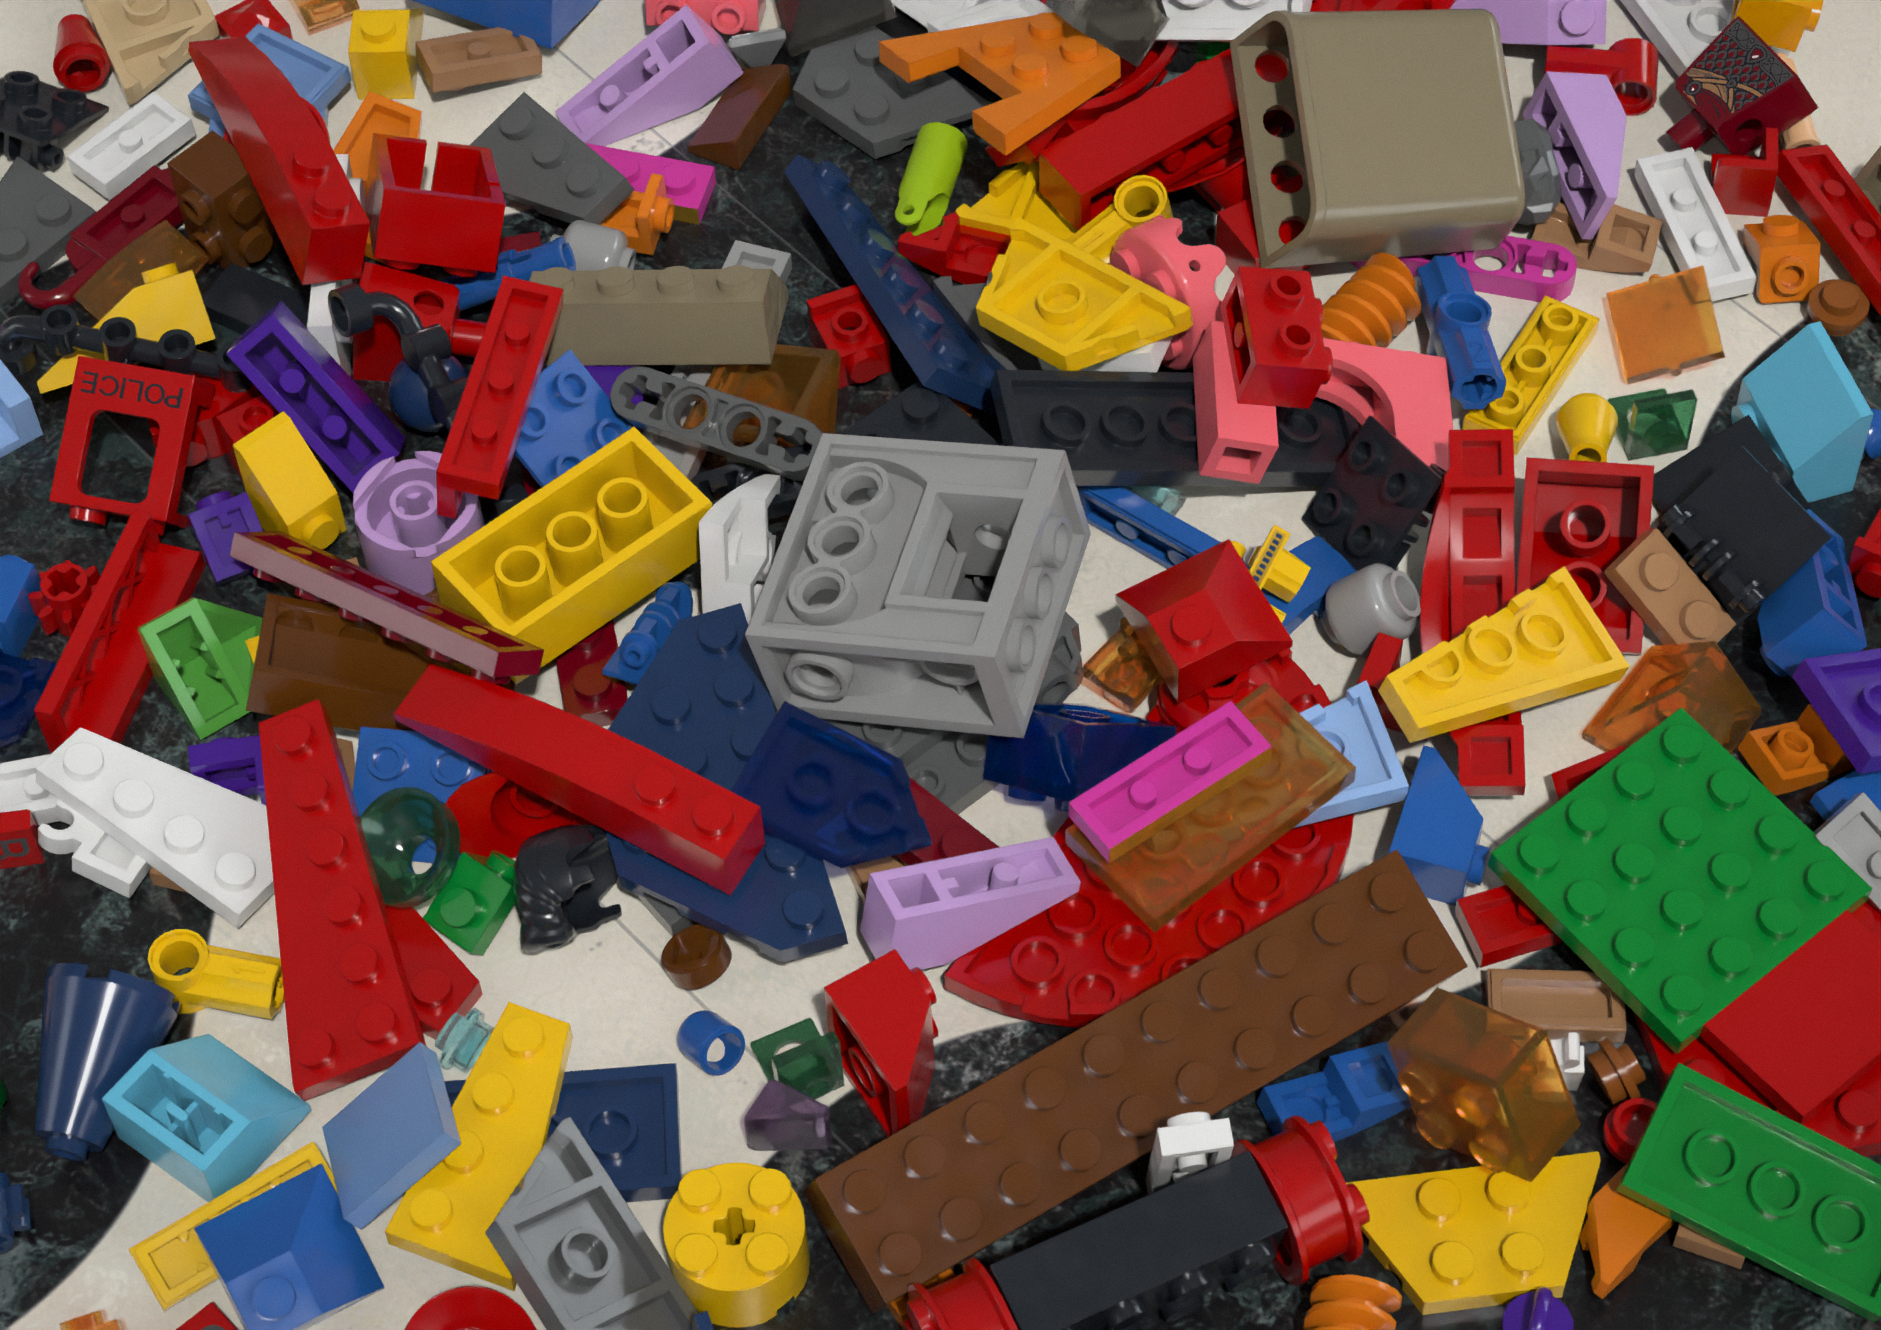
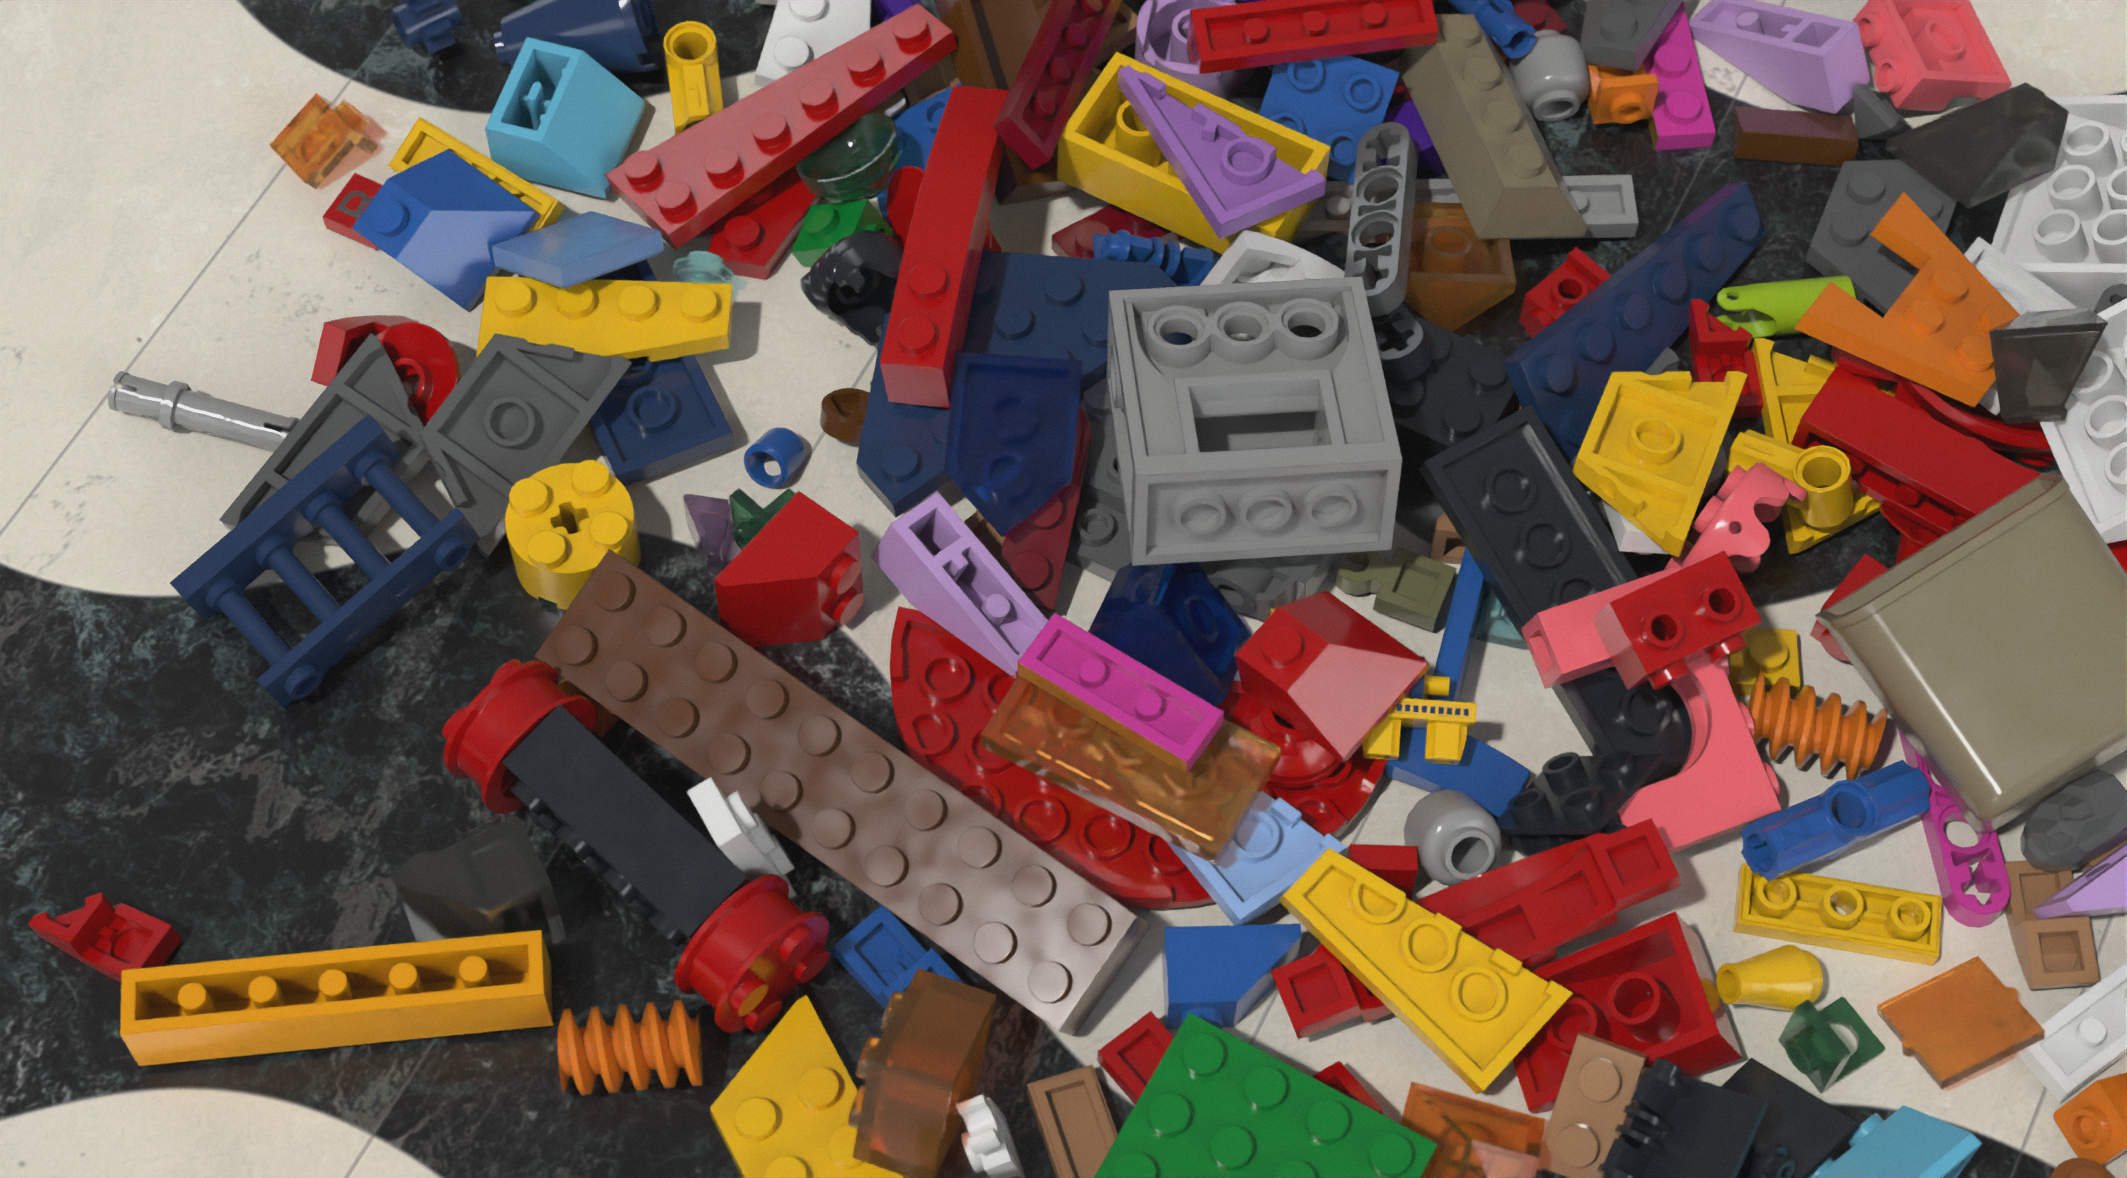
camera: 65 degrees right, 5 degrees up
(621, 512) = (1222, 168): none -> medium lavender wing
(1105, 562) = (1406, 587): none -> olive plate

